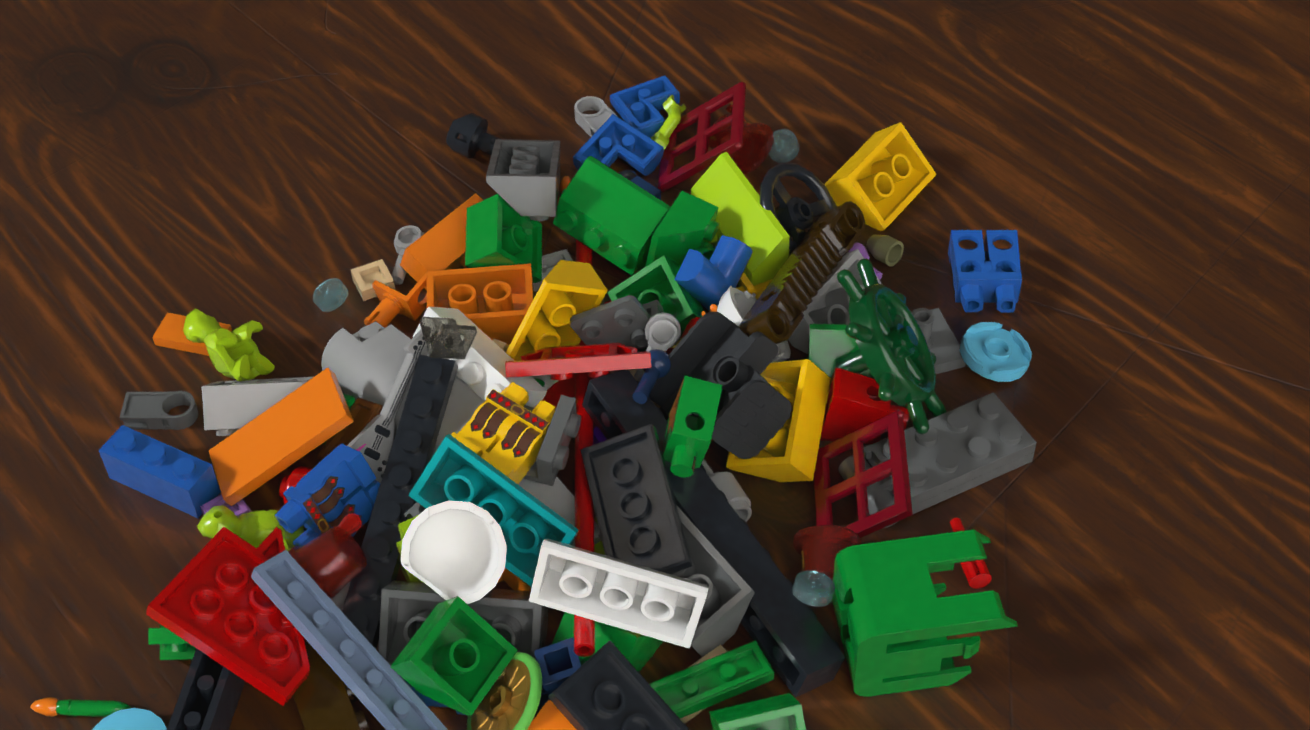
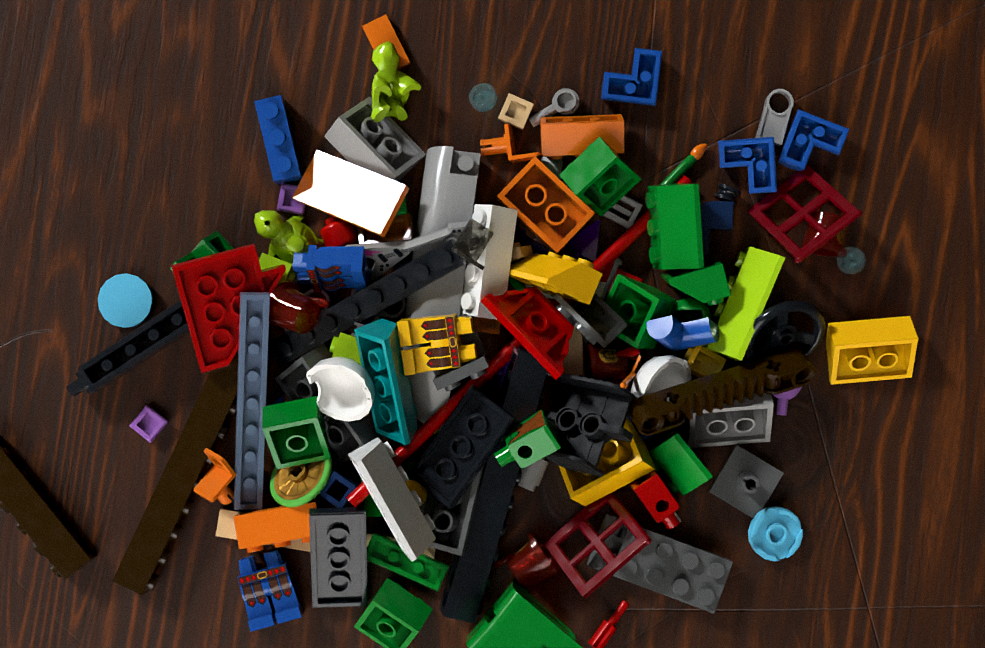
camera: 45 degrees right, 40 degrees up
(94, 708) = (112, 238): green piece -> none
(151, 410) = (315, 82): dark grey piece -> none
(456, 183) = (640, 86): none -> blue brick
(472, 136) = (683, 55): black piece -> none
(526, 176) = (663, 141): dark grey slope -> none
(660, 368) = (571, 373): dark blue bar -> none
(662, 333) = (593, 354): light grey plate -> none
(674, 116) = (786, 177): lime arm -> none
(813, 588) = (498, 578): clear light blue tile -> none
(885, 249) = (810, 400): olive hose -> none
(890, 346) = (693, 499): dark green piece -> none
(985, 272) = (840, 478): blue hips -> none

